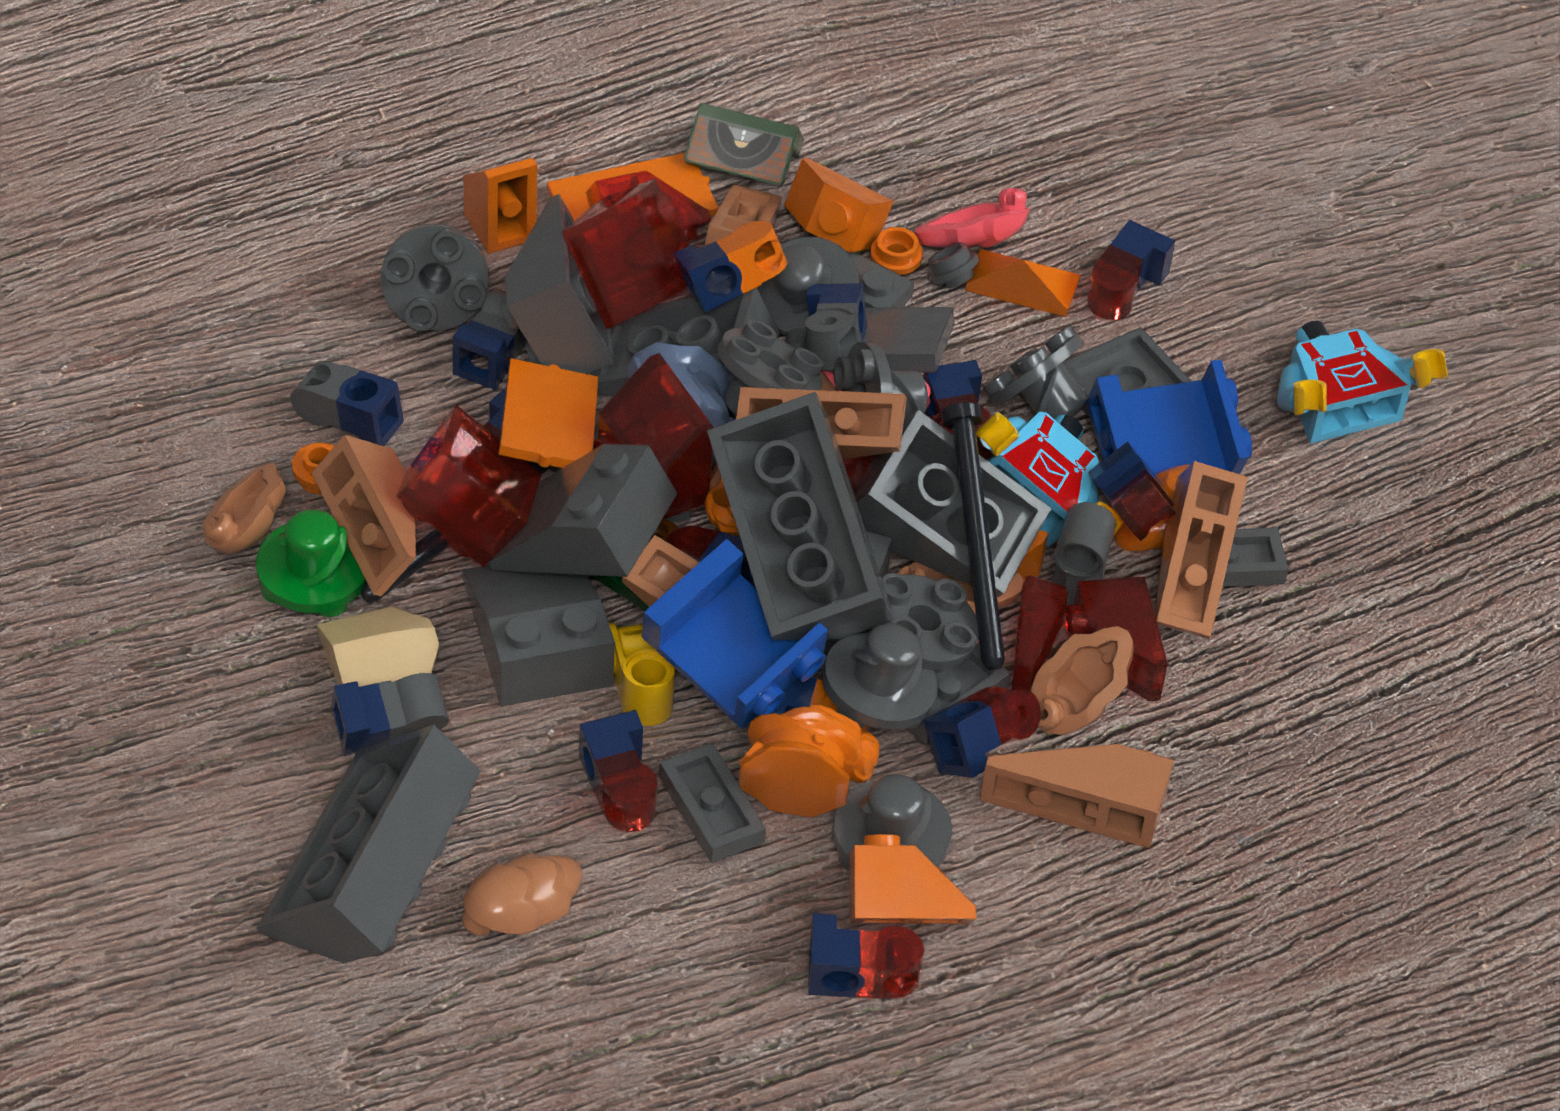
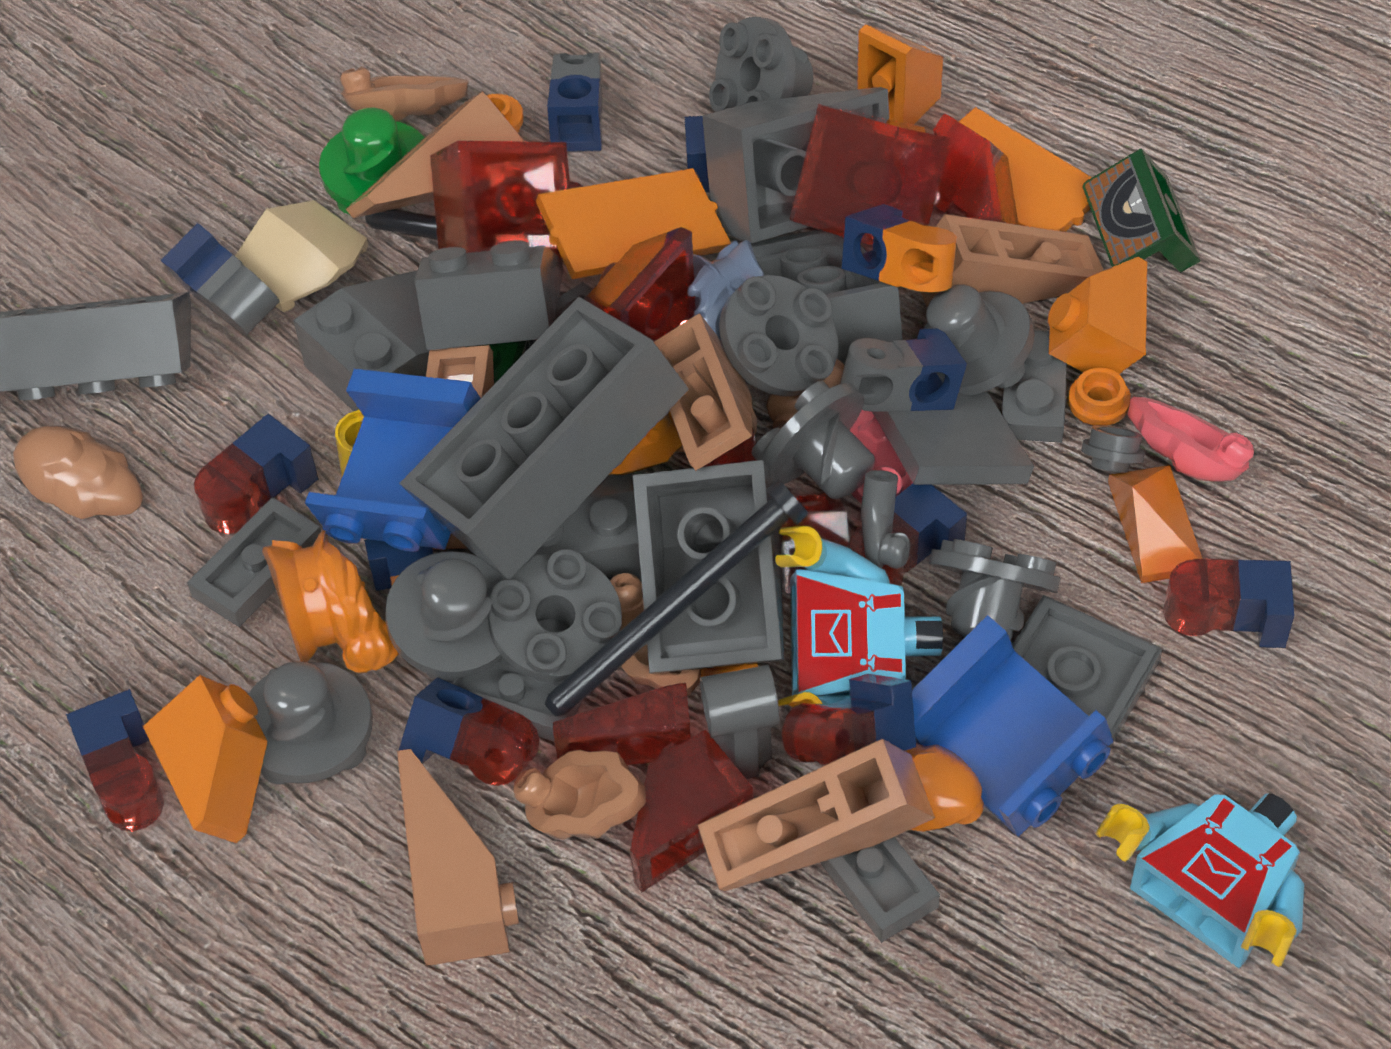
camera: 70 degrees right, 5 degrees up
(953, 390) = (877, 519): none -> dark grey arm

